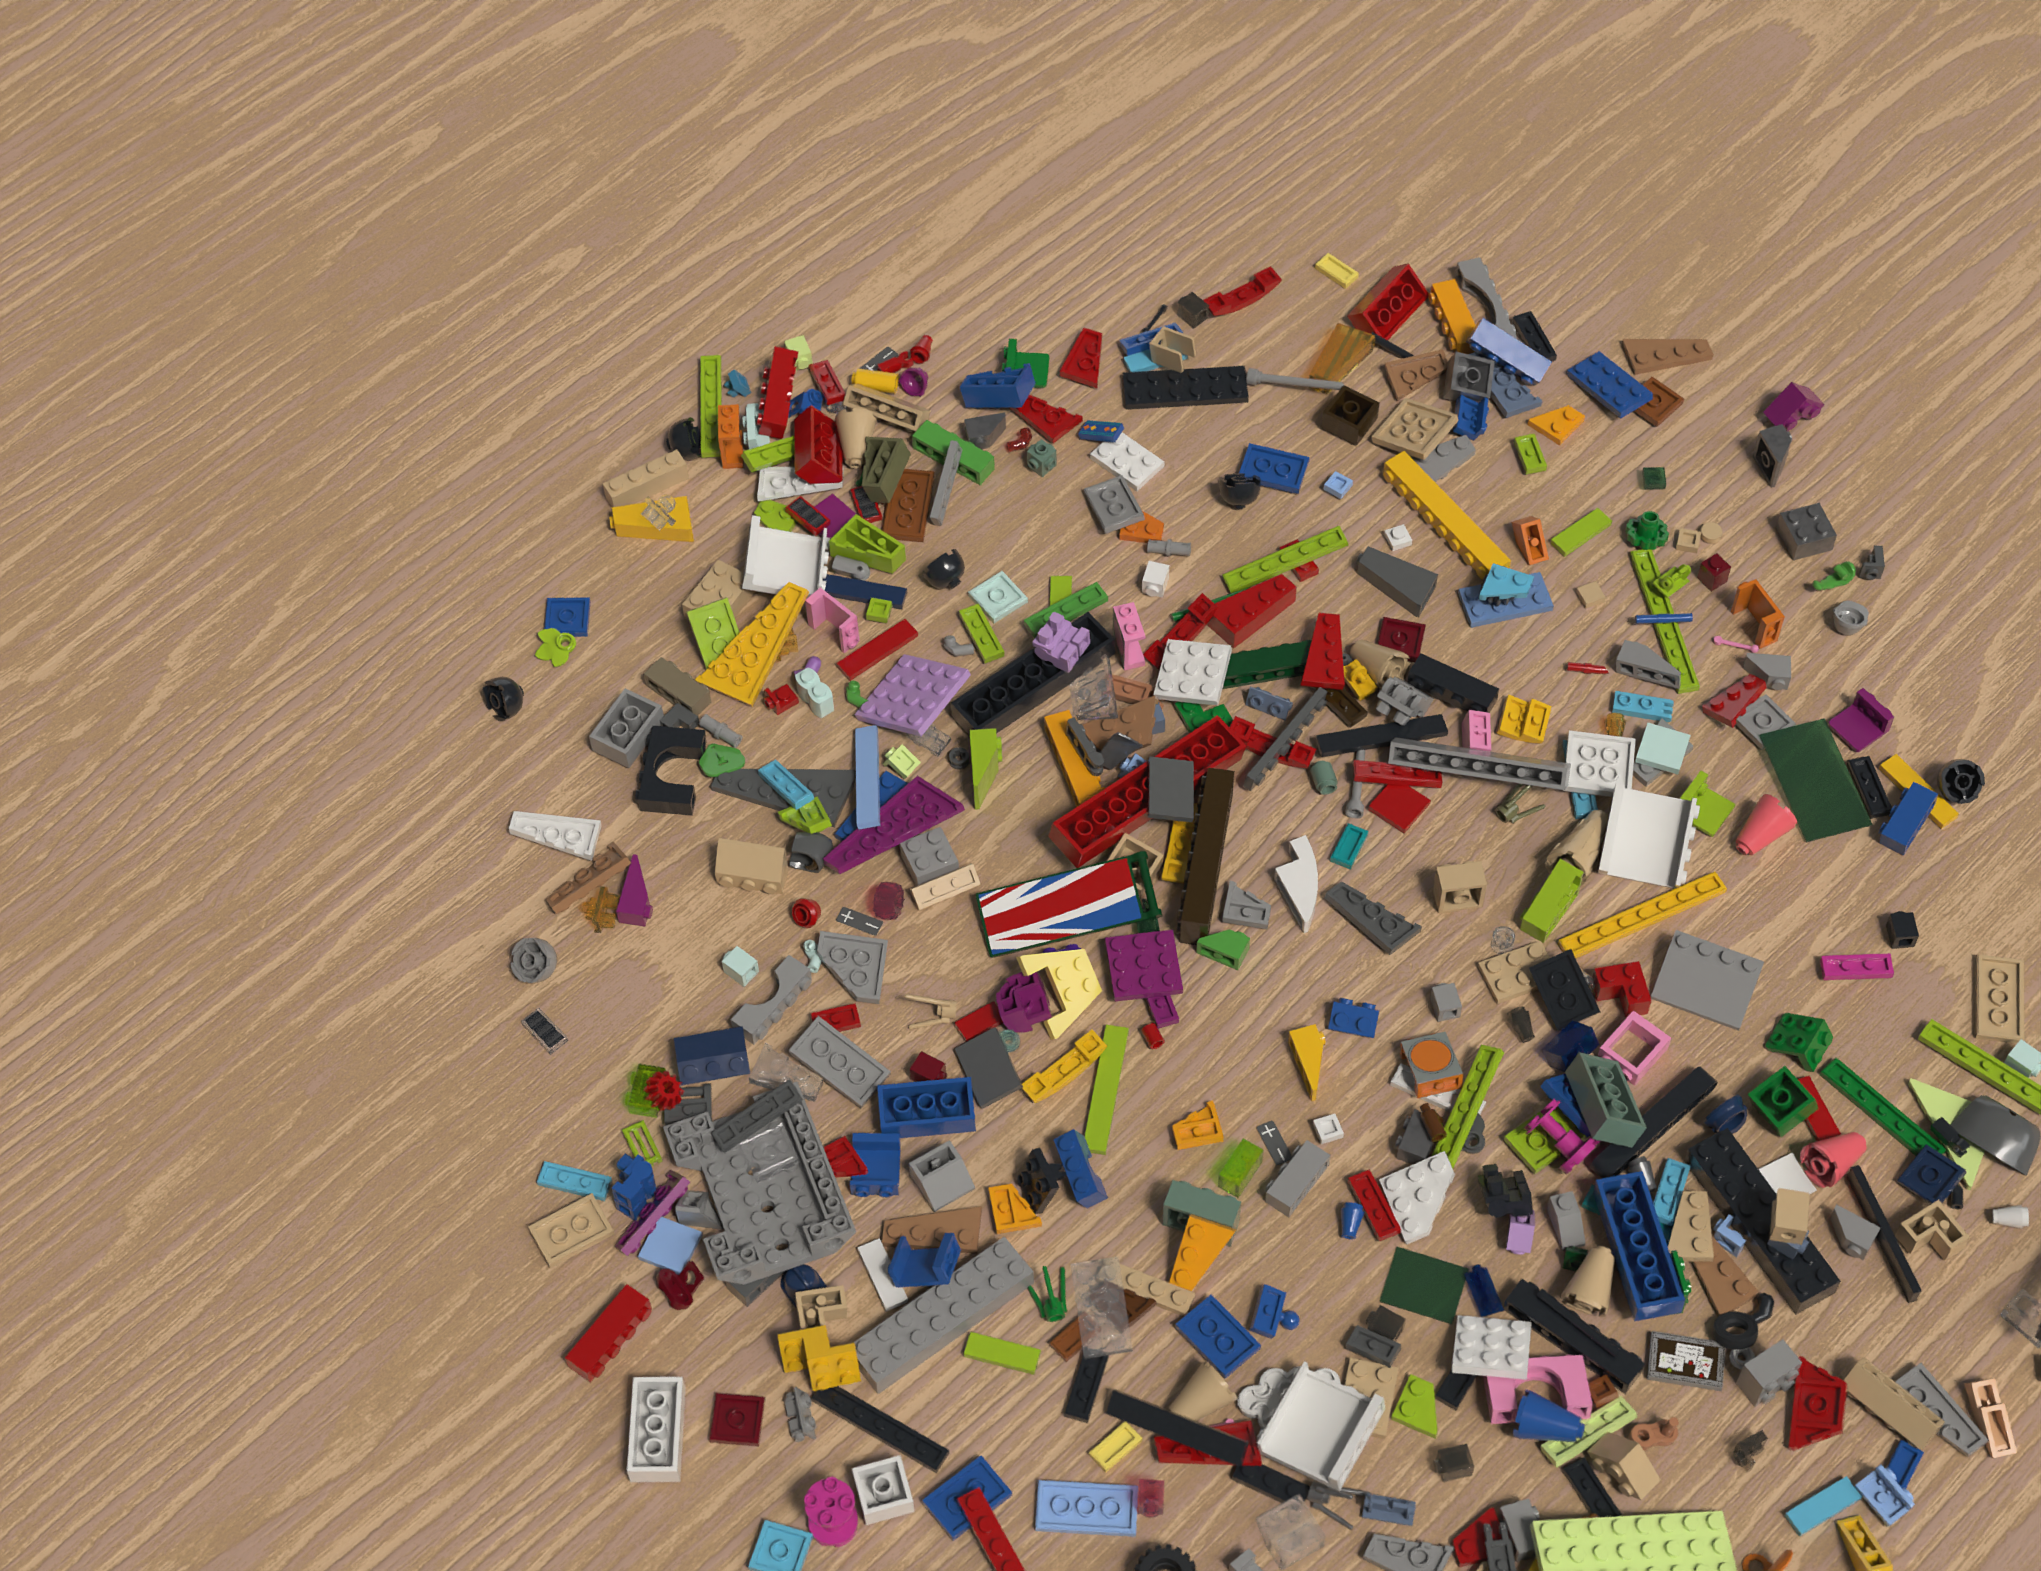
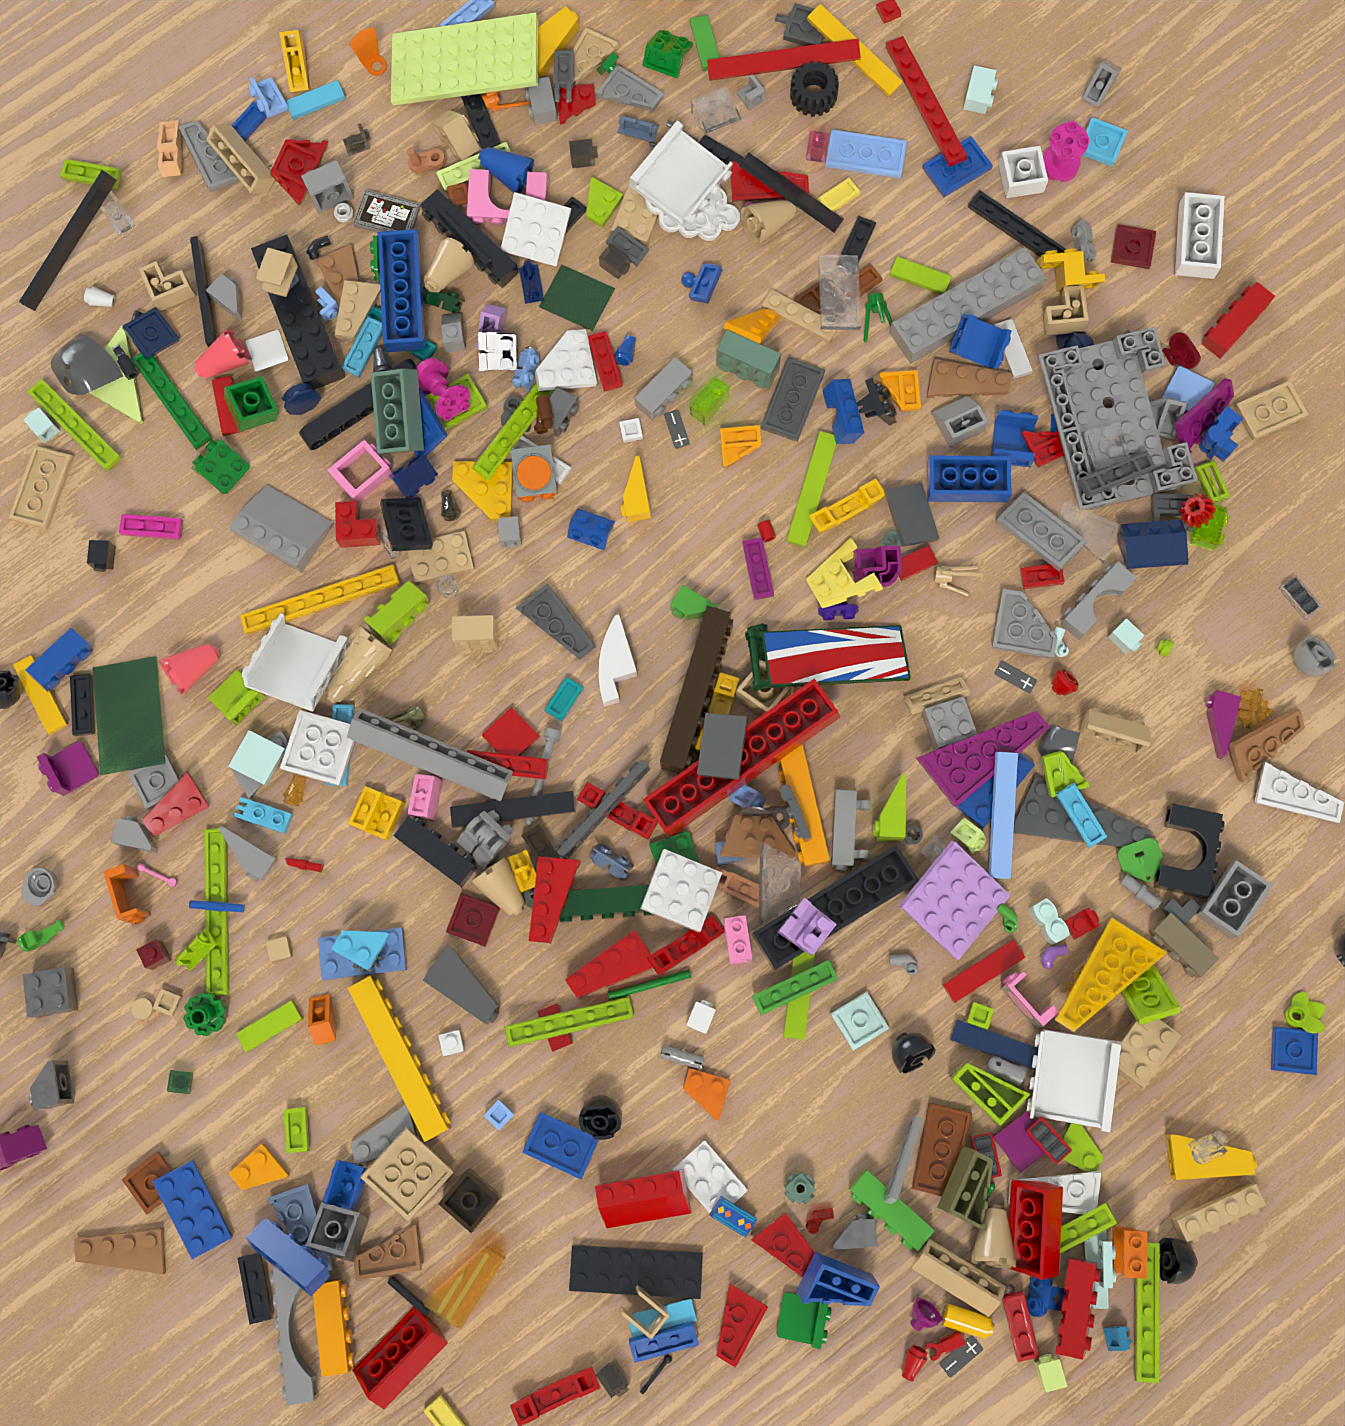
camera: 170 degrees left, 20 degrees up
(574, 1180) = (1269, 457): medium azure tile -> none
(696, 962) = (1165, 647): none -> lime plate
(888, 900) = (990, 681): clear pink gear -> none
(927, 1068) = (963, 517): dark red brick -> none
(981, 633) = (880, 975): lime plate -> none
(1031, 753) = (844, 829): none -> light grey brick
(1114, 504) = (731, 1118): light grey tile -> none
(1141, 1189) = (793, 399): none -> dark grey tile
(1143, 965) = (767, 591): magenta plate -> none
(1189, 437) = (643, 1198): none -> red slope
(1218, 1336) = (748, 268): blue plate -> none
(1245, 908) = (668, 644): light grey wing -> none
(1255, 377) = (559, 1272): light grey piece -> none
(1324, 777) = (574, 769): sand green brick -> none
(1467, 1037) = (491, 496): none -> yellow plate
(1467, 1179) = (529, 361): none -> light blue hinge
(1735, 1341) = (354, 223): black tyre -> none

